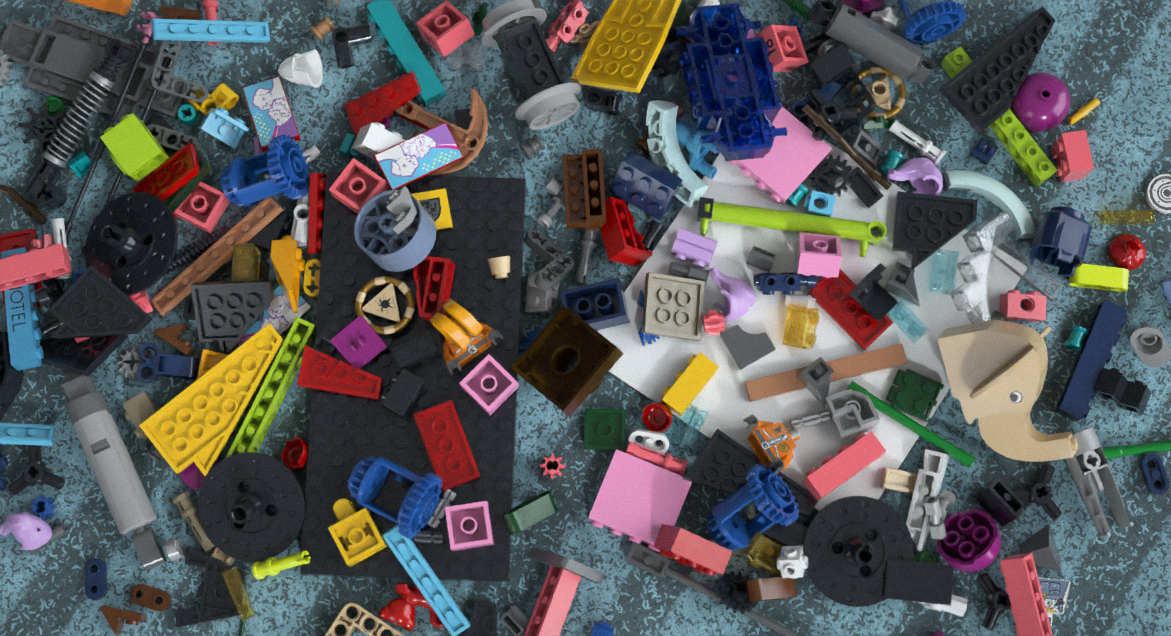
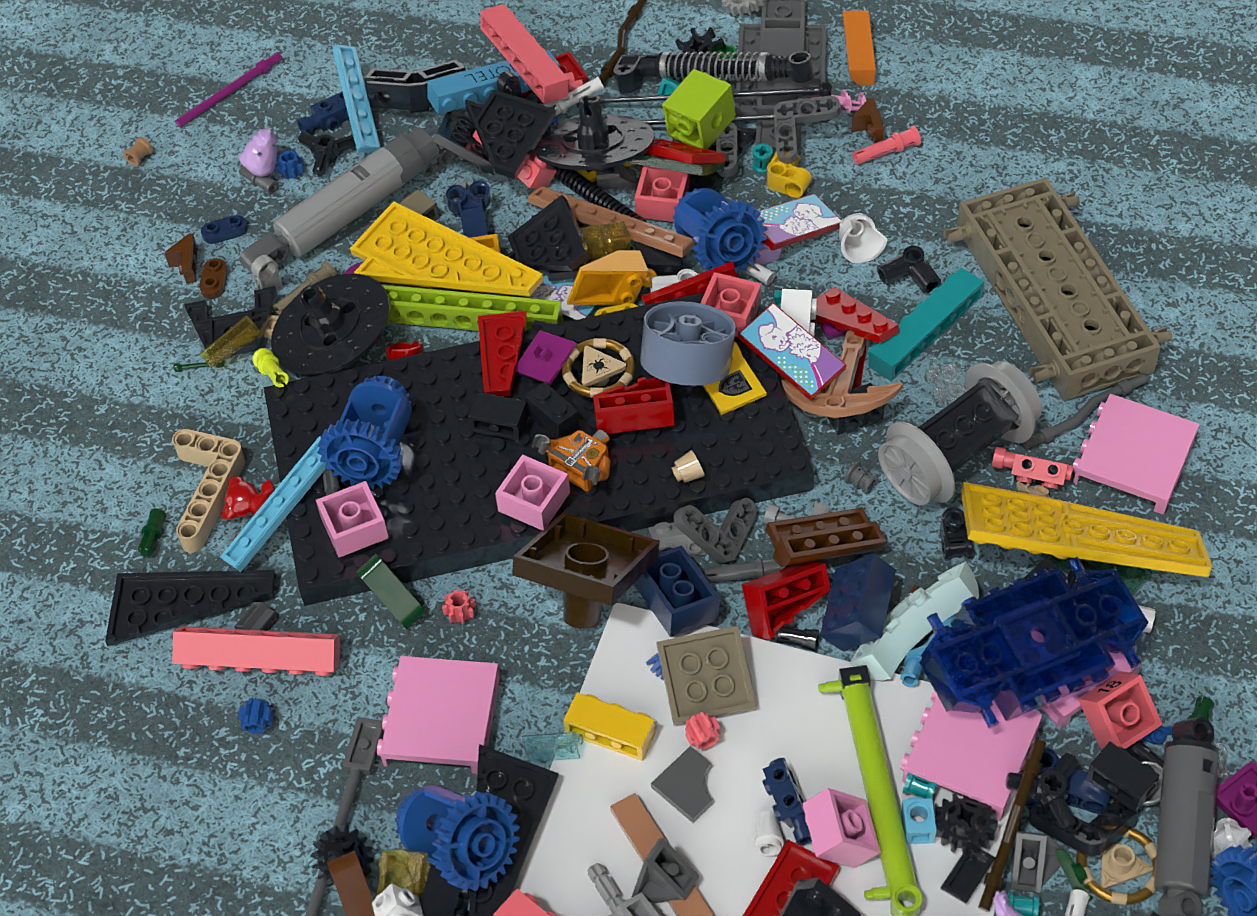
camera: 75 degrees right, 25 degrees down
(173, 335) = (505, 215): reddish brown slope -> none
(210, 30) = (862, 139): medium azure tile -> none
(223, 127) = (759, 185): medium azure bracket -> none
(322, 28) = (915, 239): medium nougat bush -> none
(356, 531) = (312, 410): yellow brick -> none
(402, 207) = (712, 327): light grey slope -> none
(439, 512) = (387, 495): light grey axle -> none
(445, 28) = (968, 343): coral brick -> none
(447, 445) = (448, 478): red tile -> none
(458, 322) = (589, 423): light orange wheel -> none
(566, 564) = (332, 628): dark grey beam -> none
(604, 429) = (523, 652): dark green plate -> none
(649, 439) = (521, 707): white plate -> none
(657, 416) = (555, 703): red hair -> none
(664, 460) = (500, 729): coral pin -> none
(688, 271) = (763, 687): dark grey axle -> none
(692, 550) = (382, 776): brick -> none
(694, 248) = (797, 682): lavender brick -> none
(737, 293) = (748, 749): lavender piece -> none
(761, 259) = (813, 767): dark grey piece -> none
(771, 442) = (556, 840): torso -> none
(800, 327) = (733, 840): clear yellow bracket -> none

